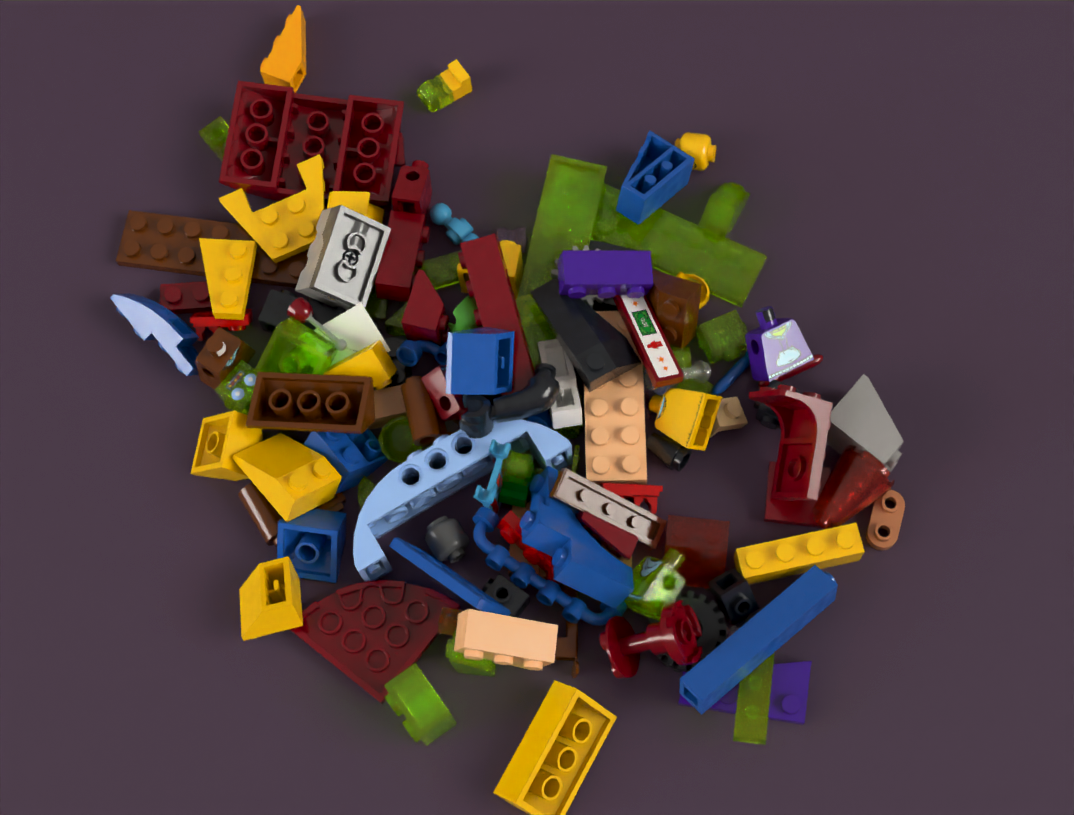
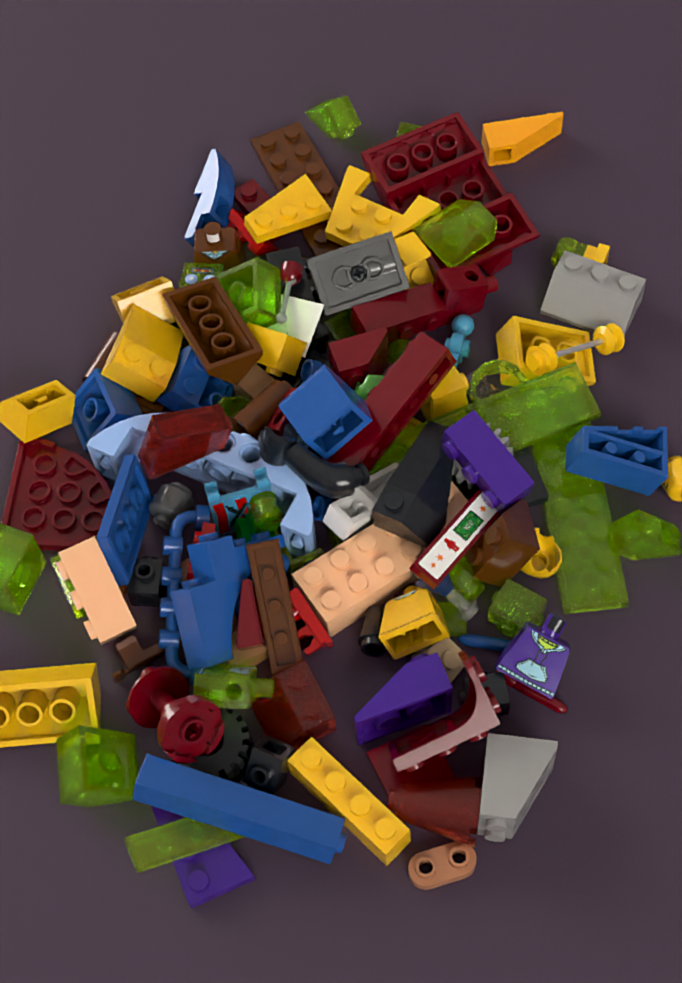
camera: 55 degrees right, 10 degrees down
(149, 179) = (335, 117): none -> clear neon green slope
(357, 157) = (458, 231): none -> clear neon green slope
(420, 488) = (183, 437): none -> clear red slope
(488, 103) = (592, 294): none -> light grey slope
(509, 230) = (489, 369): none -> clear neon green helmet
(513, 174) = (523, 333): none -> yellow slope
(532, 172) = (545, 358): none -> yellow axle
(645, 731) = (96, 766): none -> clear neon green slope
(747, 453) = (408, 699): none -> dark purple slope

